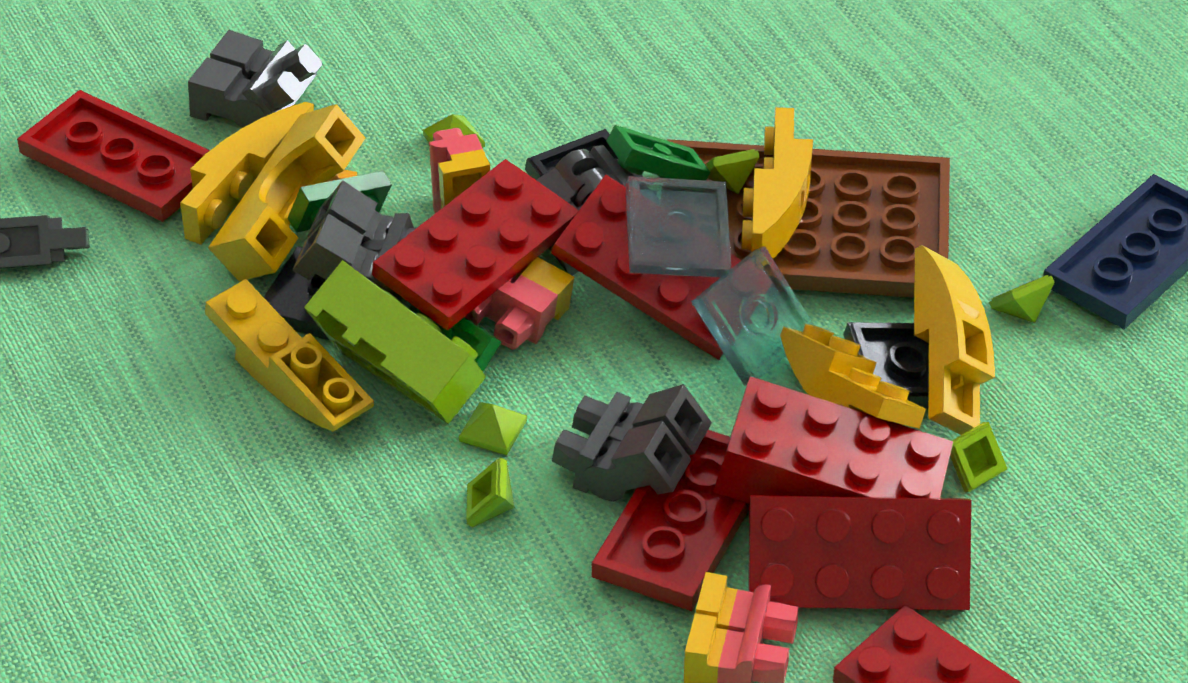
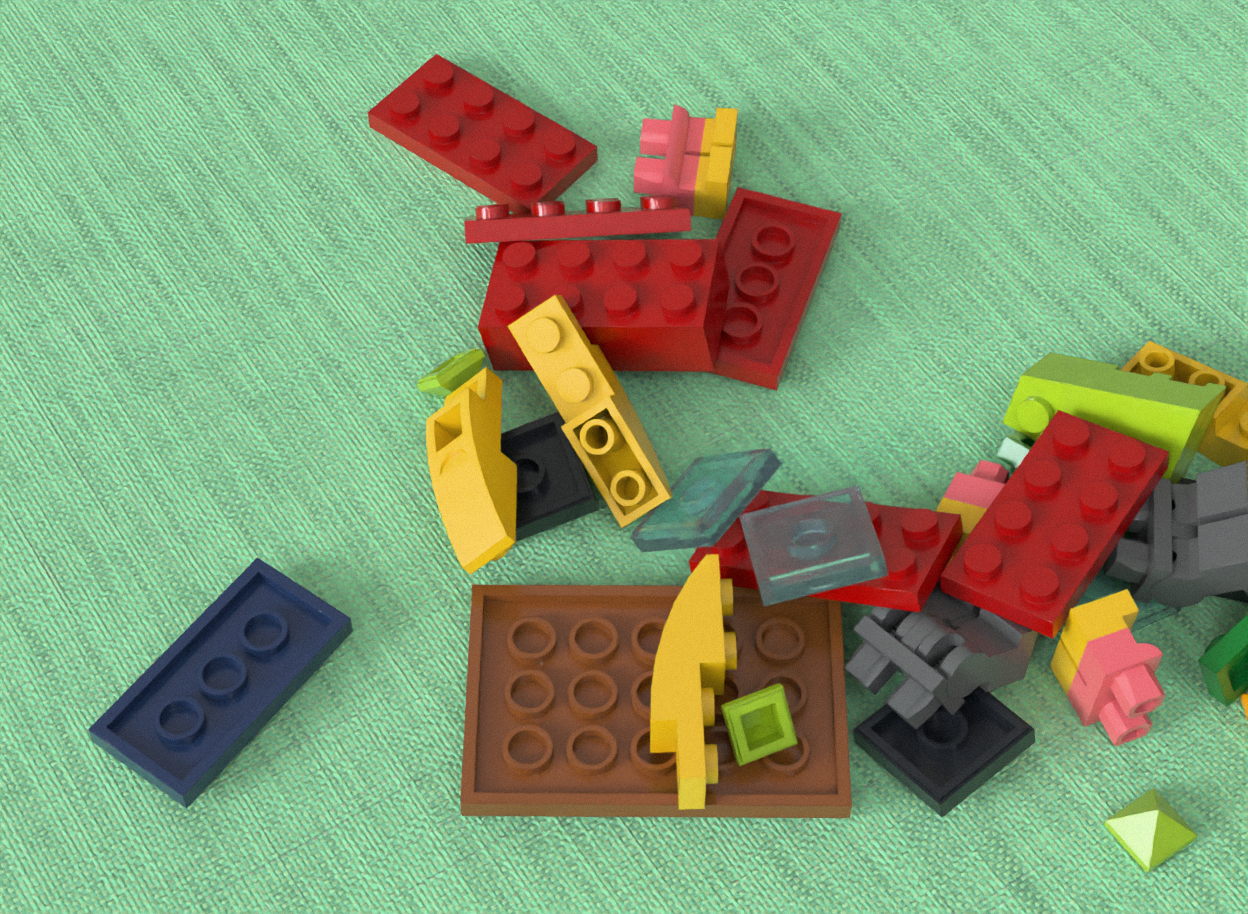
camera: 175 degrees right, 10 degrees up
(489, 494) = (961, 293): lime slope -> none
(493, 428) = (979, 388): lime slope -> none
(632, 442) = (823, 335): dark grey hips -> none
(647, 153) = (856, 696): green plate -> none
(1024, 300) = (380, 596): lime slope -> none

